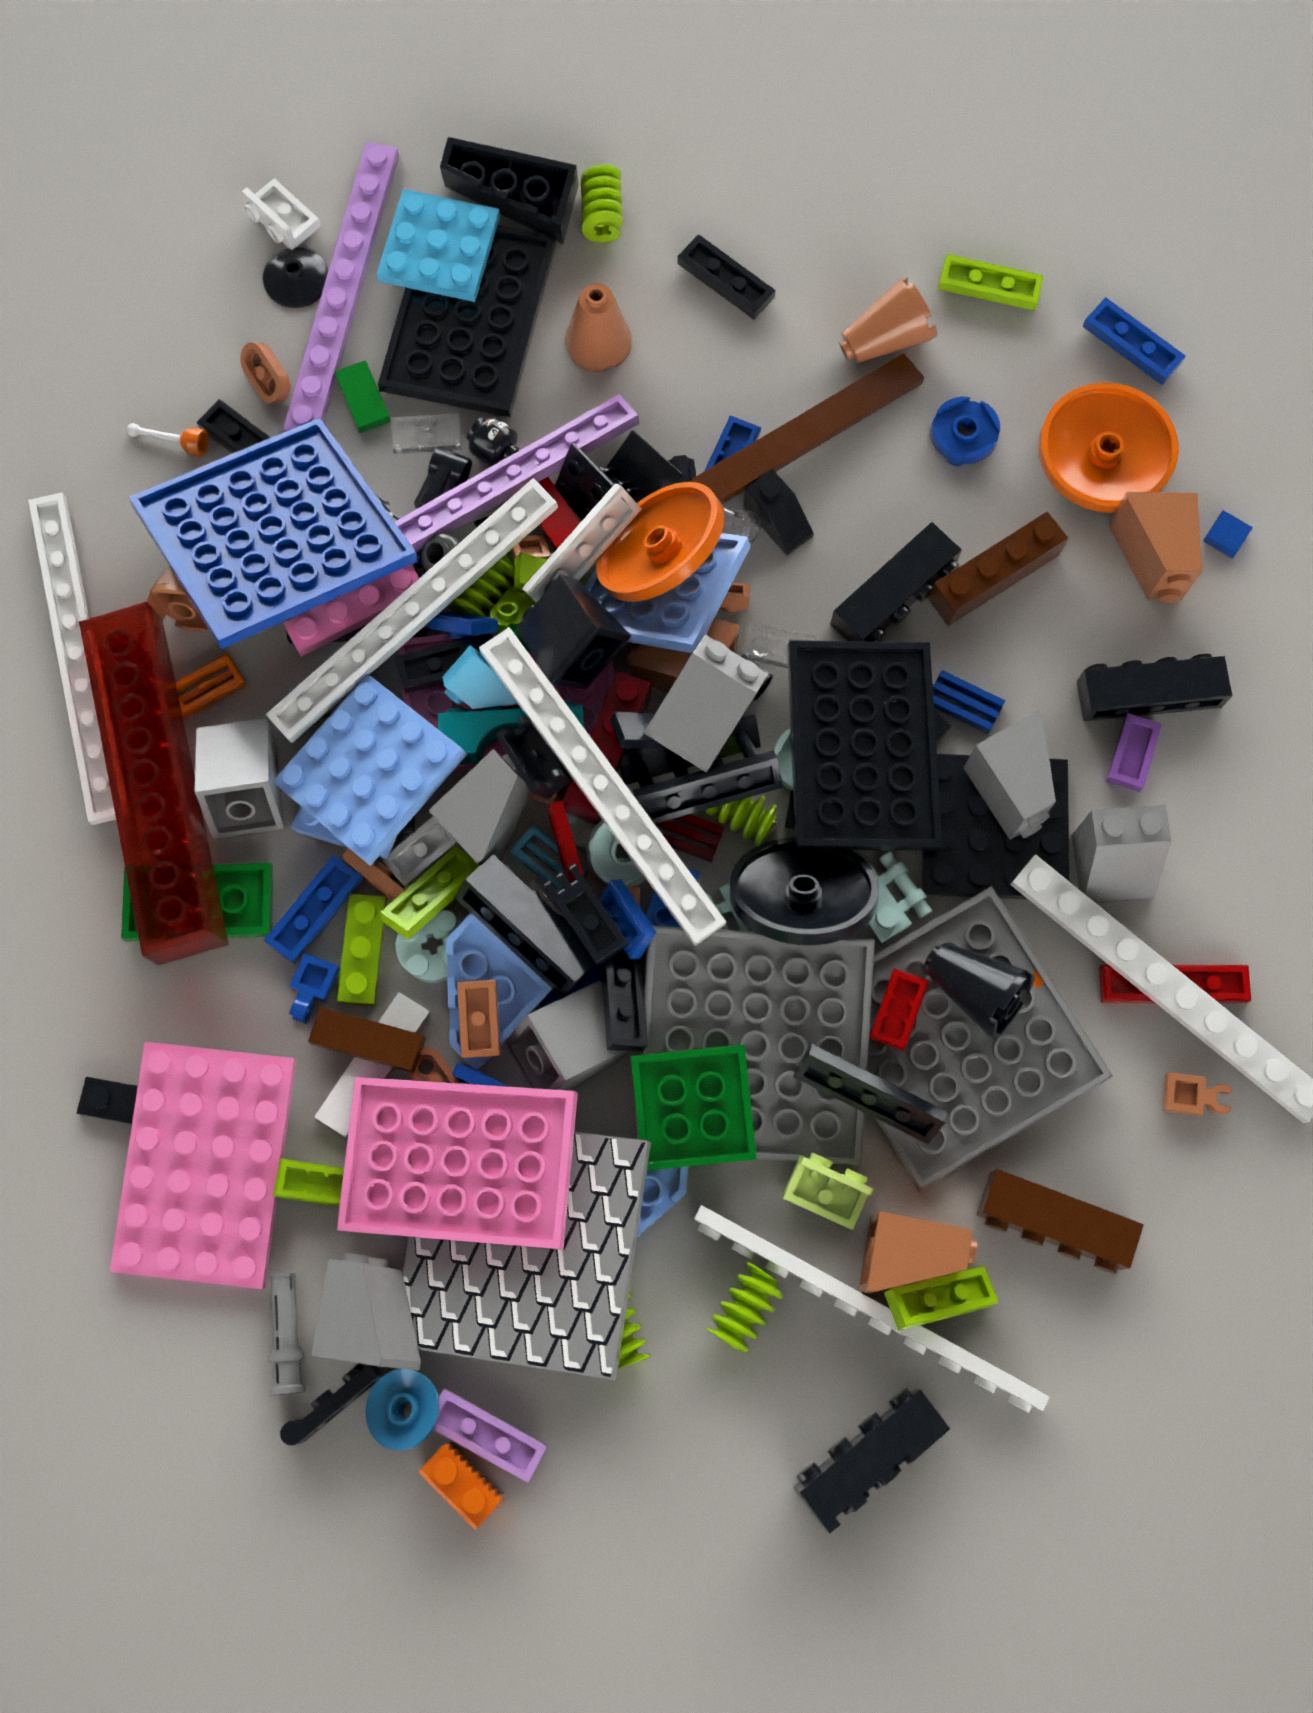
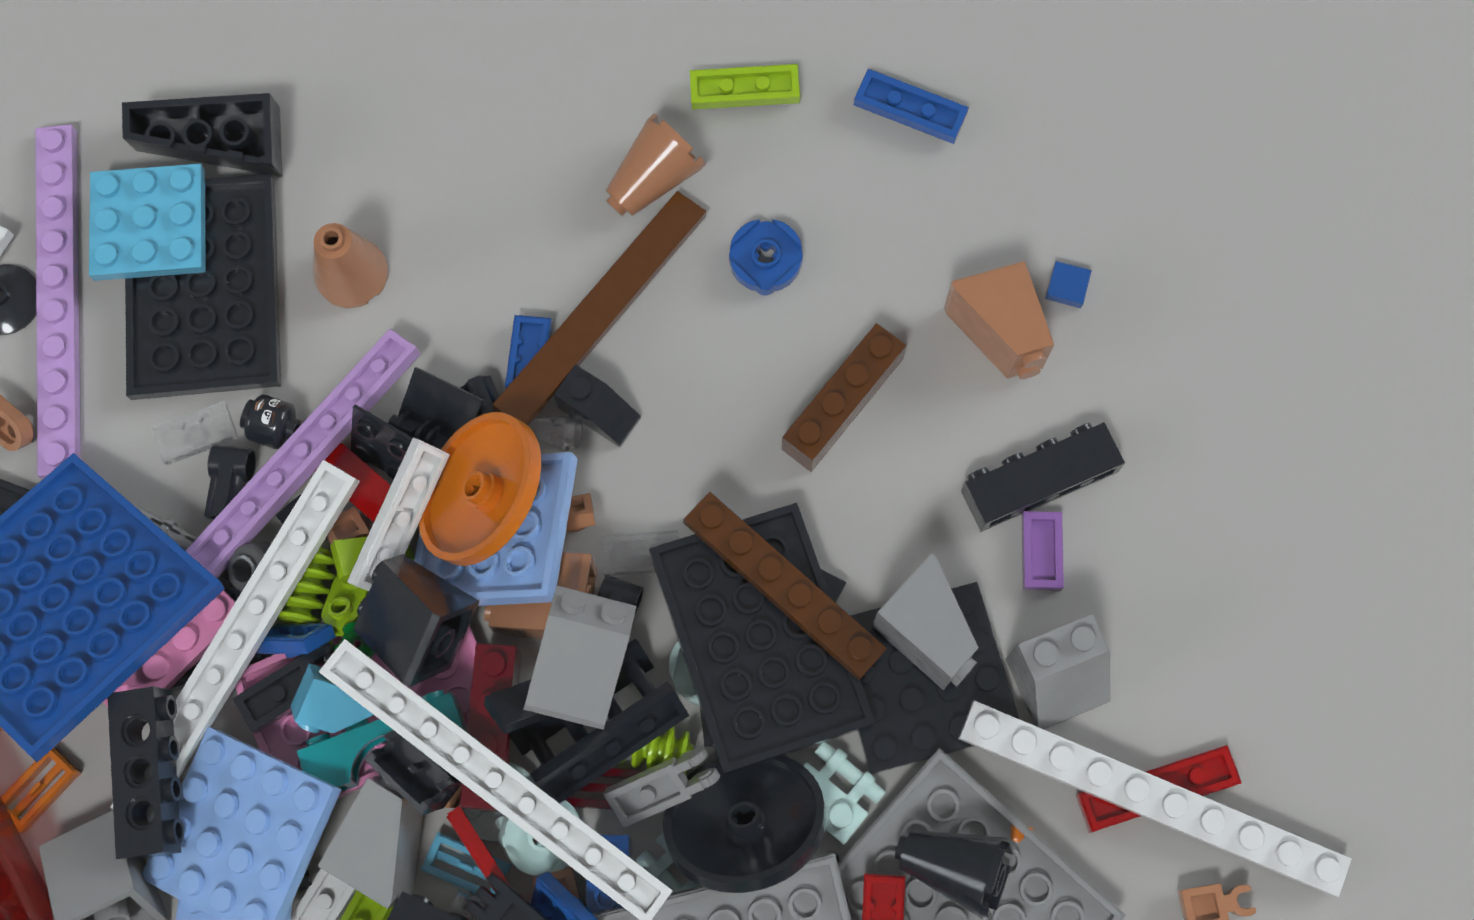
camera: 15 degrees left, 0 degrees up
(307, 638) = (129, 757): none -> black brick
(362, 396) = (114, 411): green tile -> none
(601, 203) = (309, 122): lime piece -> none
(726, 276) = (466, 163): black plate -> none
(736, 841) = (659, 787): none -> light grey hinge
(897, 586) = (748, 443): black brick -> none
(898, 707) = (784, 585): none -> reddish brown plate
(972, 691) = (854, 536): blue tile -> none
(1107, 443) = (917, 230): orange dish -> none

